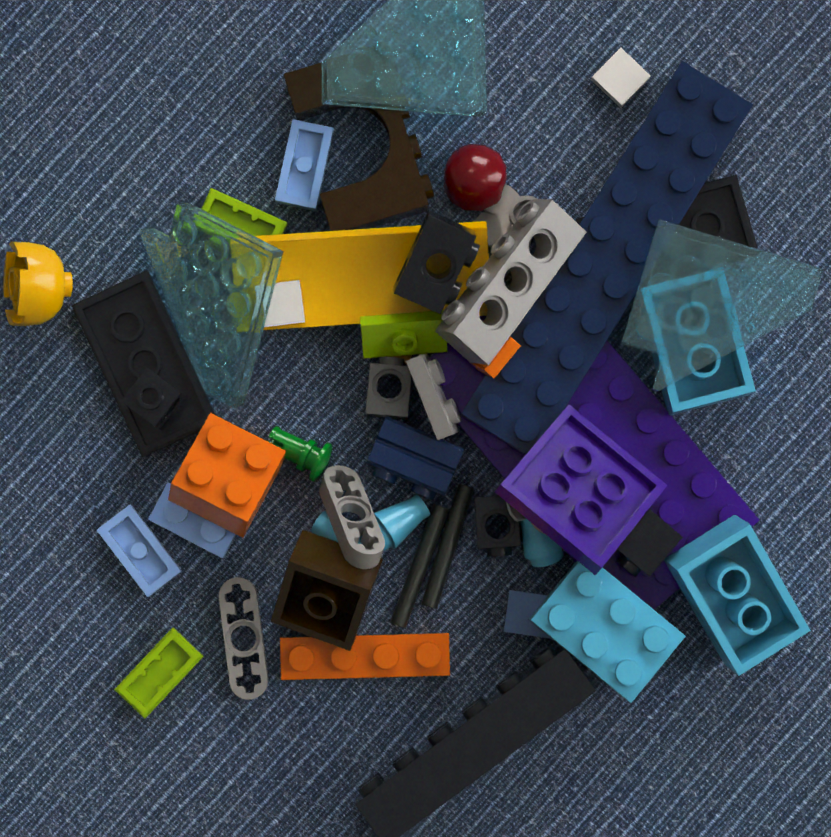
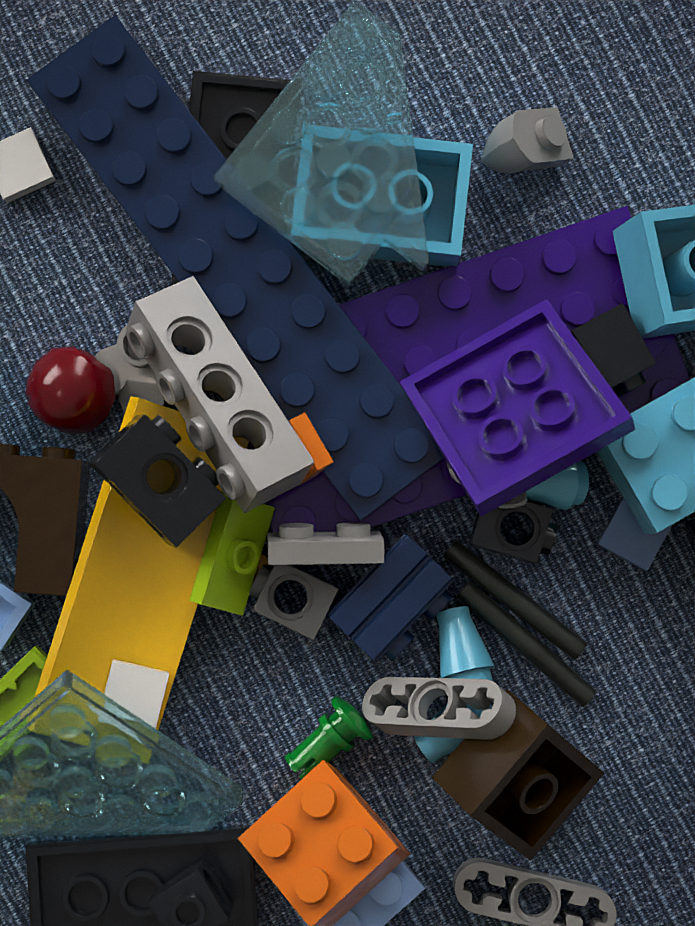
camera: 70 degrees left, 0 degrees up
(369, 658) = (617, 748): orange plate -> none
(778, 432) = (527, 142): none -> light grey plate

